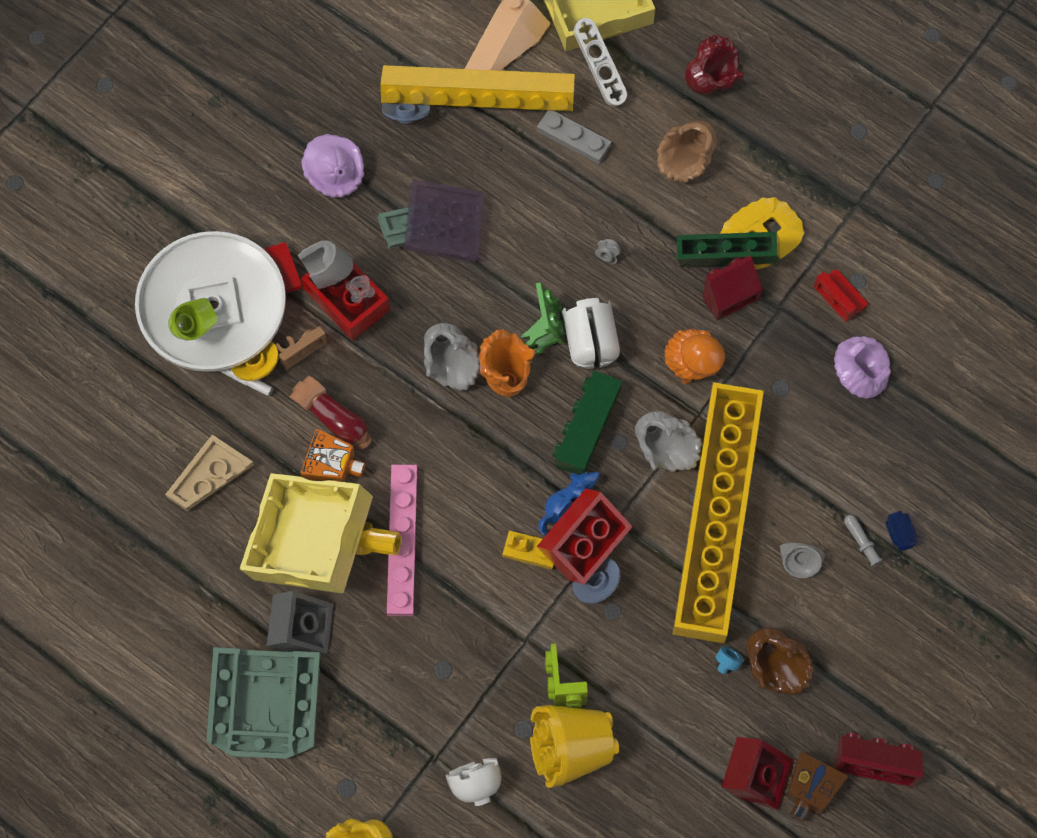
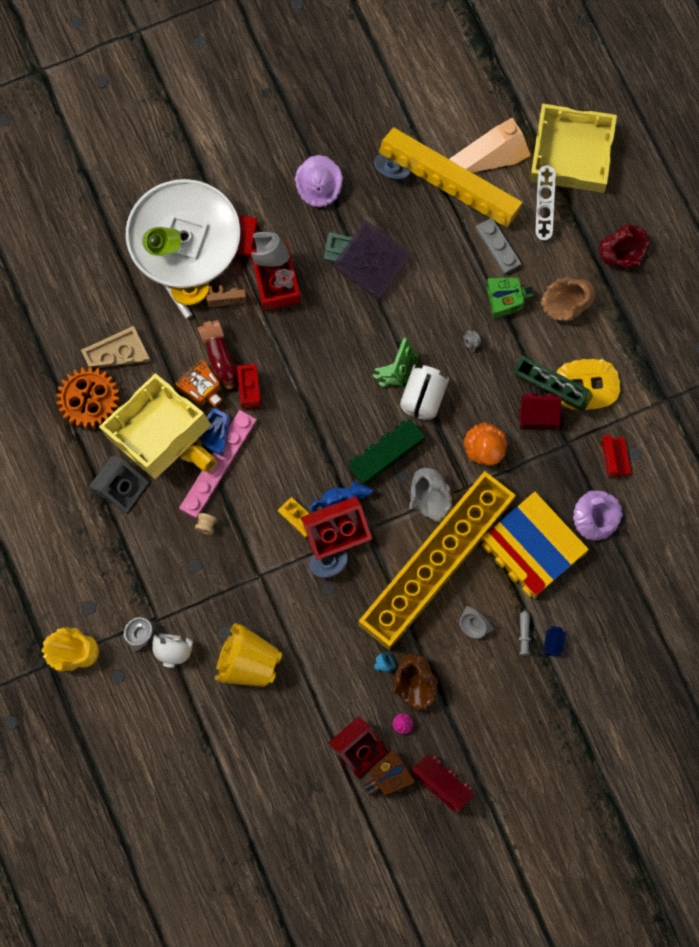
camera: 30 degrees right, 5 degrees up
(182, 550) = (71, 393): none -> orange gear
(263, 702) = (66, 522): sand green wedge -> none
(383, 508) = (216, 435): none -> blue wing
(388, 431) = (249, 386): none -> red panel
(424, 784) = (138, 632): none -> light grey piece
(429, 614) = (205, 523): none -> tan wheel
(450, 357) = (320, 357): light grey hair -> none
(505, 362) = (352, 381): orange hair -> none
(564, 694) = (265, 628): lime bracket -> none
(616, 183) = (506, 295): none -> bright green torso
(790, 718) = (402, 724): none -> dark pink plate
(814, 438) = (533, 545): none -> panel

